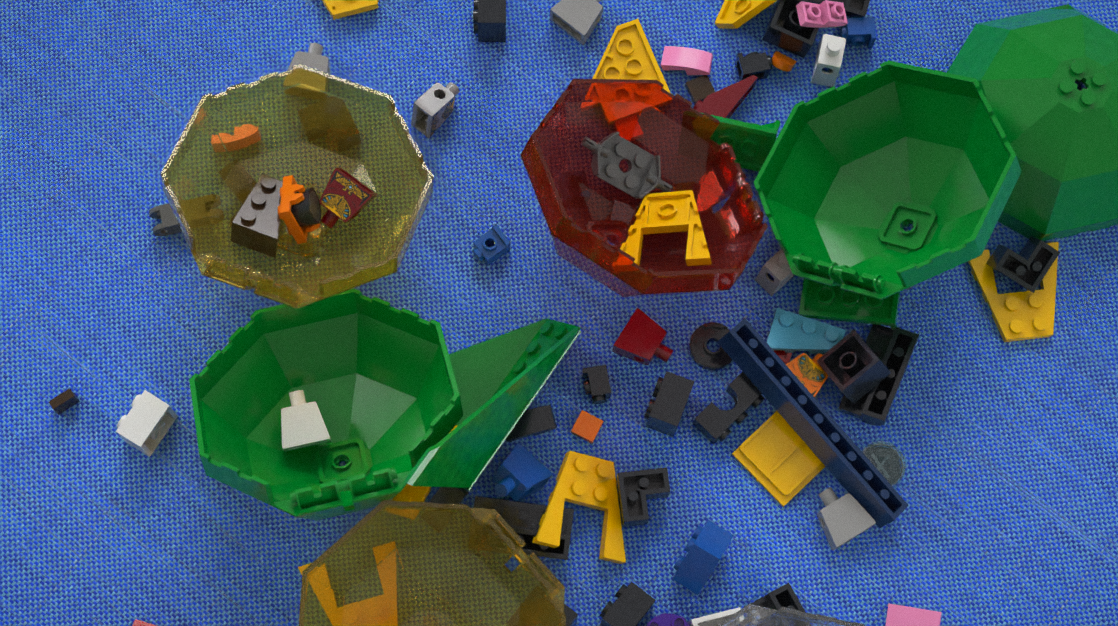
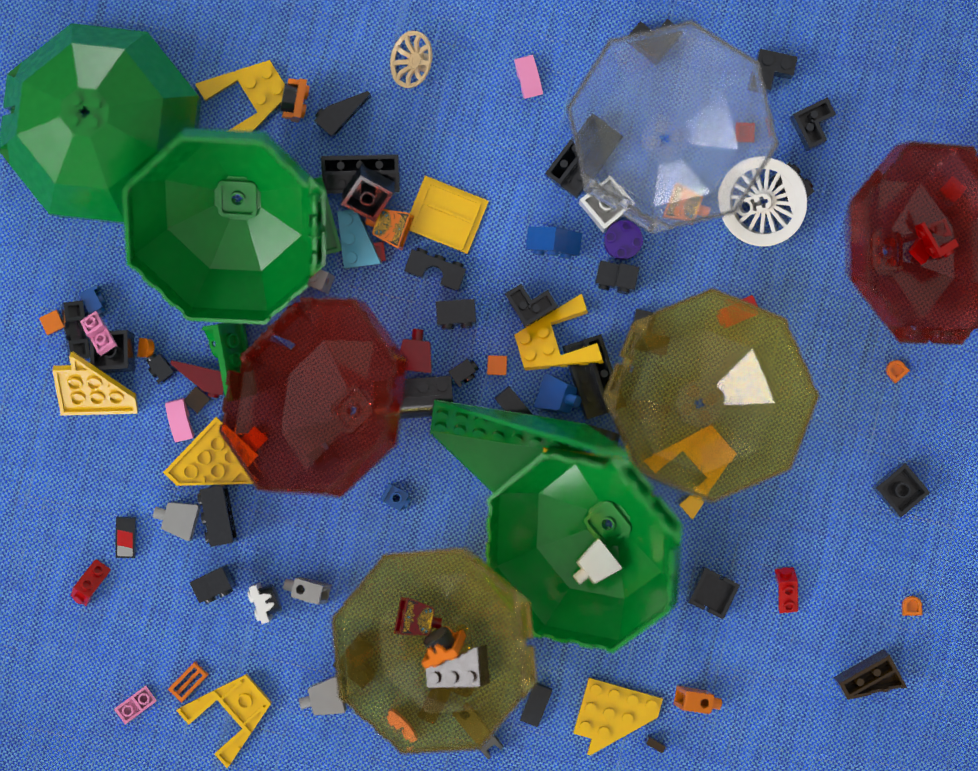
camera: 110 degrees left, 15 degrees up
(86, 469) = (696, 700): none -> orange torso
(122, 368) = (613, 712): none -> yellow wing
(146, 423) = (645, 675): white brick -> none
(181, 291) = (536, 704): none -> black slope
(200, 549) = (713, 592): none -> black piece
(445, 55) = (265, 601): none -> white piece
(563, 50) = (217, 515): none -> black brick
(597, 313) = (421, 393): none -> black brick
(642, 171) = (286, 412): dark grey plate -> none
(666, 214) = (316, 379): yellow wing -> none
(699, 350) = (386, 310): black tile -> none
(812, 423) = (423, 205): dark blue brick -> none
(830, 56) = (129, 313): white torso -> none
(842, 518) = (479, 155): light grey torso -> none
(887, 460) = (426, 144): clear light blue tile -> none
(957, 379) = (336, 116): none -> black slope
(984, 496) = (416, 60): none -> tan wheel
(996, 336) = (293, 98): none -> orange piece
(1027, 267) = (230, 99): black brick -> none

